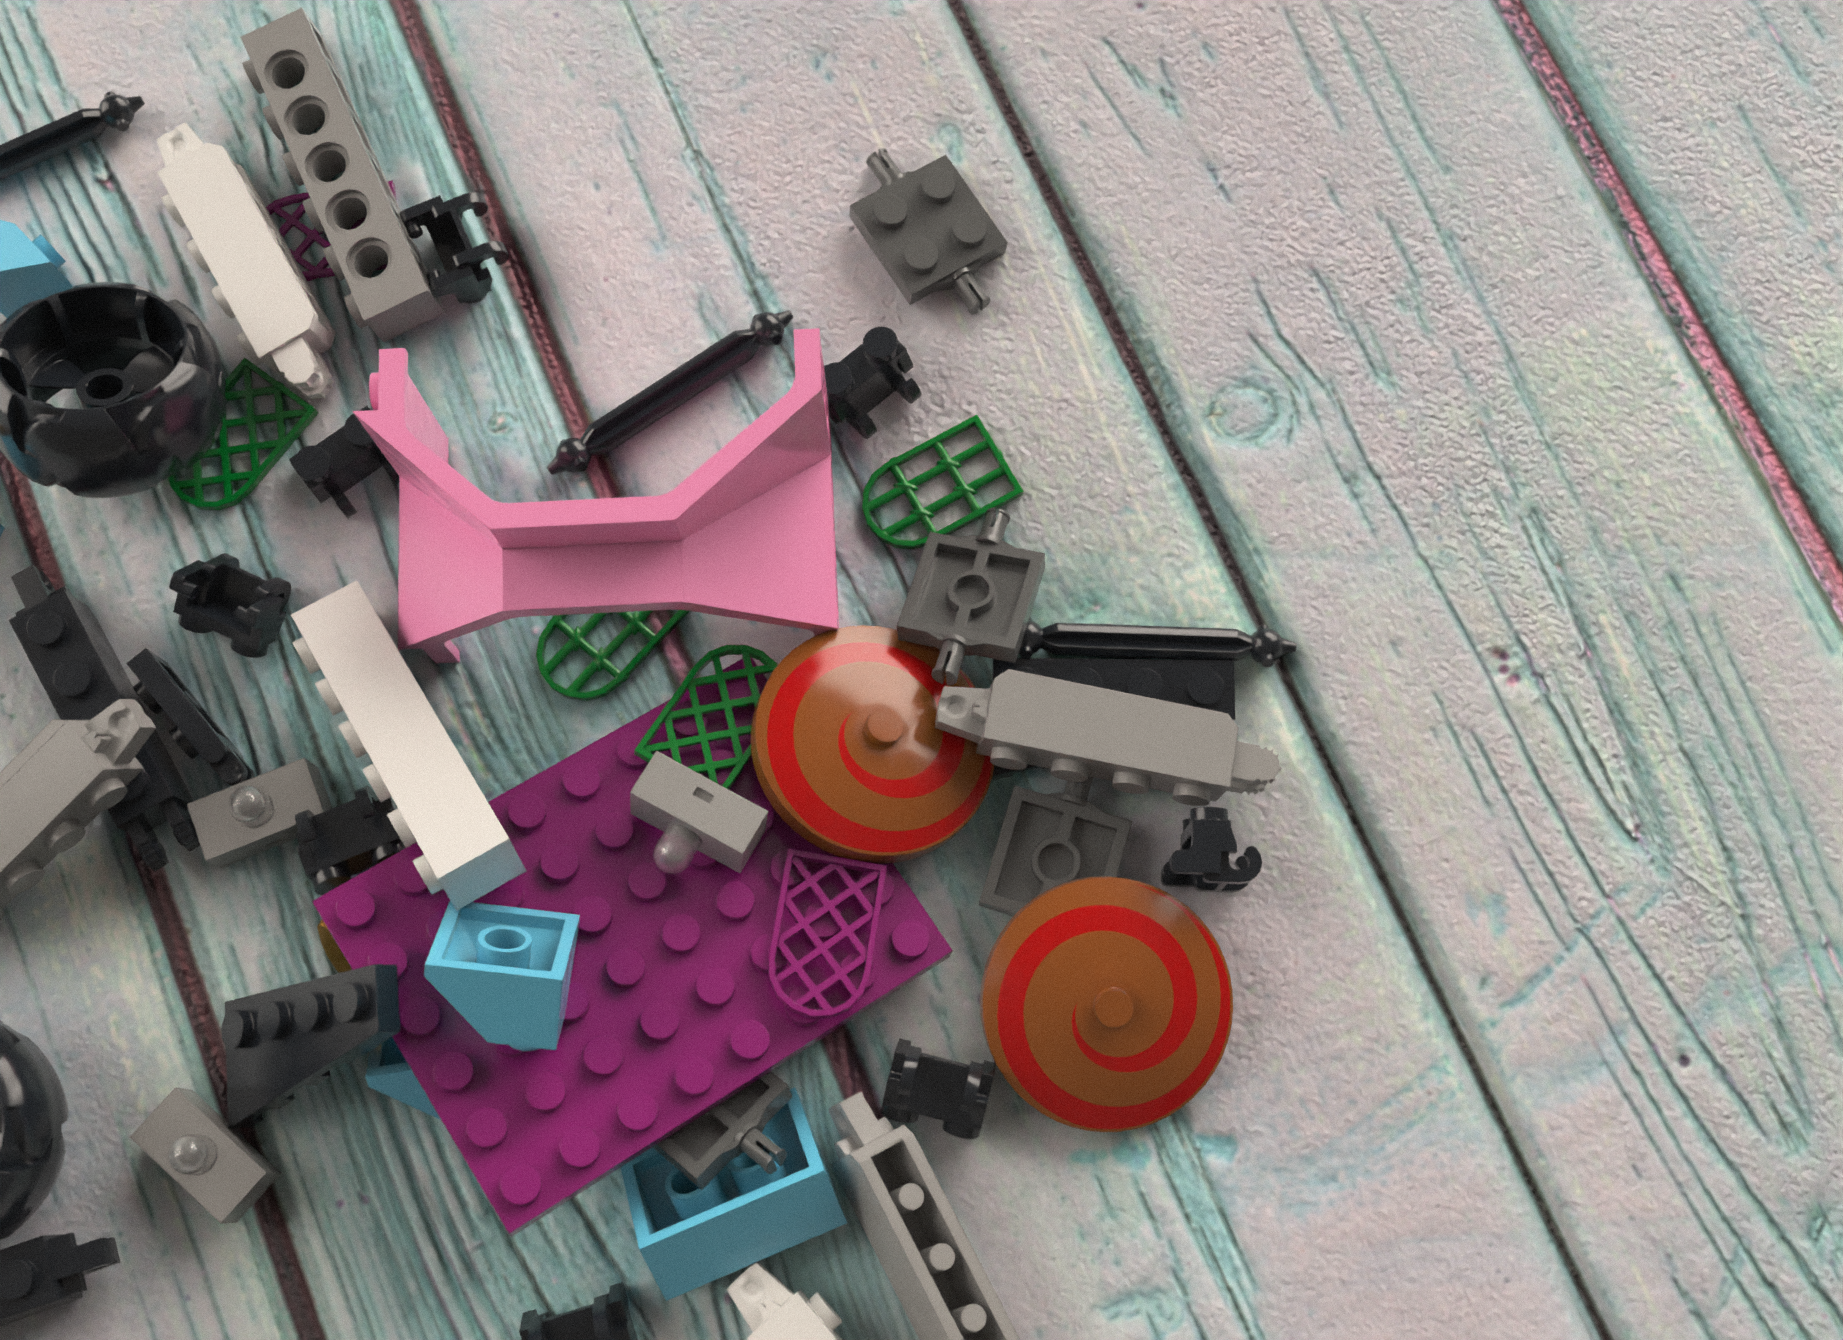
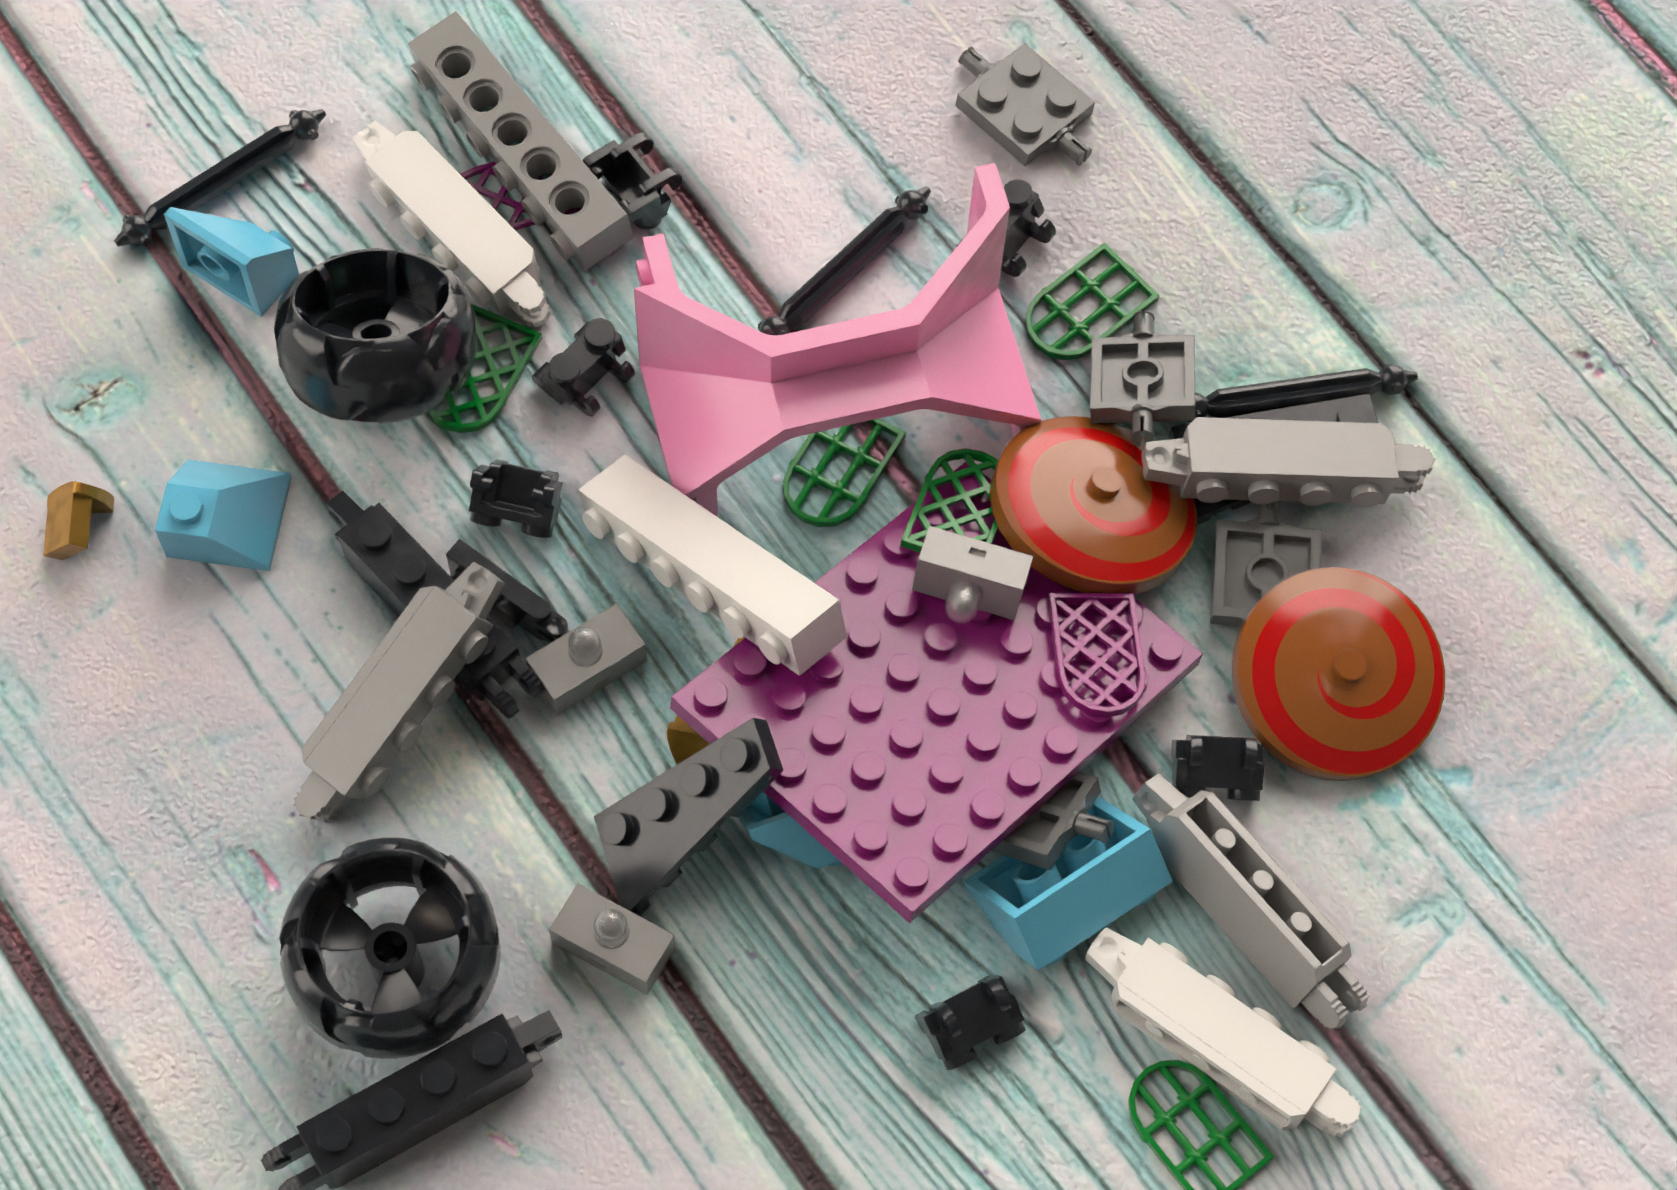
camera: 15 degrees left, 10 degrees down
(346, 839) = (670, 660): black piece -> none
(506, 971) = (865, 709): medium azure slope -> none
(1205, 855) = (1390, 541): black piece -> none

